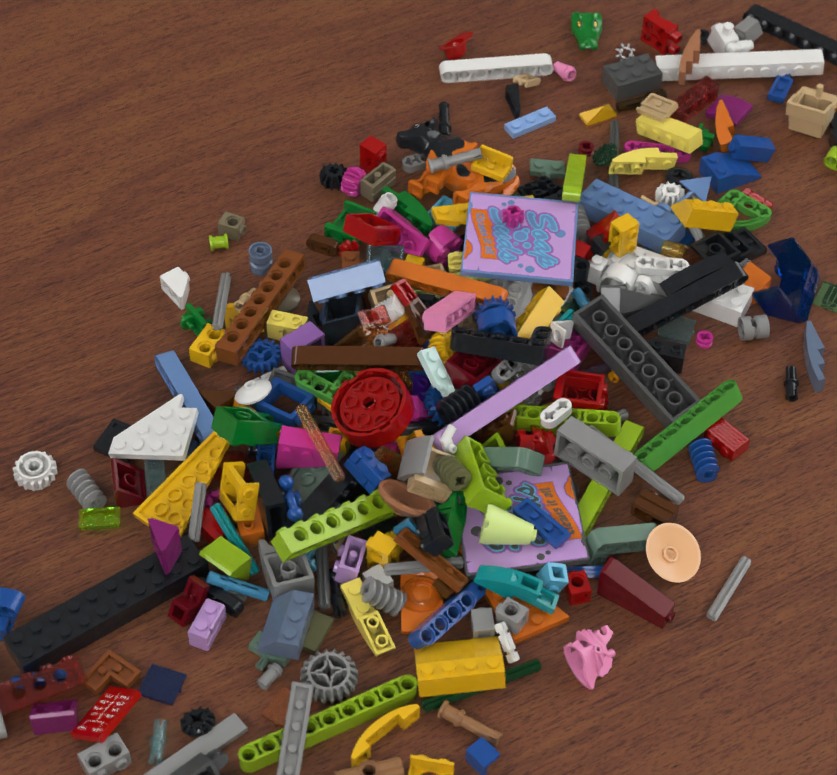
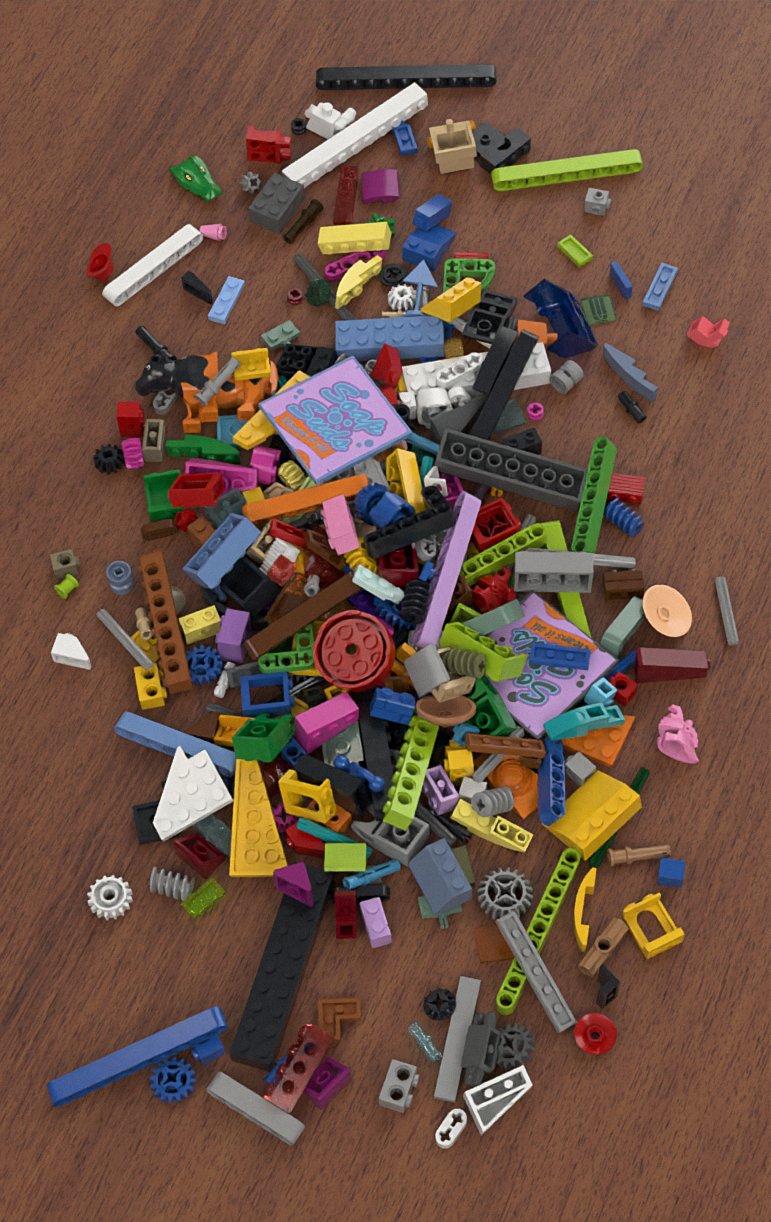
camera: 35 degrees left, 10 degrees up
(106, 714) = (368, 1051): red tile -> none
(162, 684) = (381, 996): clear blue piece -> none
(194, 319) = (116, 672): green hips -> none
(197, 512) = (286, 836): light grey axle -> none
(253, 391) = (234, 702): white dish -> none
(272, 673) = (459, 925): light grey pin -> none
(320, 443) = (340, 710): clear orange axle -> none
(387, 200) = (180, 457): white brick -> none
(434, 532) = (494, 721): black brick -> none
(446, 440) = (433, 638): white arm -> none
(505, 528) = (538, 681): yellowish green cone -> none
(506, 642) = (610, 769): white axle -> none
(513, 216) = (317, 404): dark pink gear -> none
(519, 612) = (604, 740): light grey brick -> none
(524, 80) = (192, 264): tan tile -> none
(555, 412) = (496, 556): white beam -> none
(574, 178) = (322, 333): lime beam -> none
(597, 115) = (275, 256): yellow slope -> none
(598, 246) = (399, 384): black tile -> none
(623, 235) = (413, 362): yellow brick -> none
(657, 107) = (329, 222): tan plate -> none
(690, 55) = (316, 156): nougat slope -> none
(724, 127) = (395, 206): orange slope -> none
(748, 29) = (336, 96): light grey brick -> none

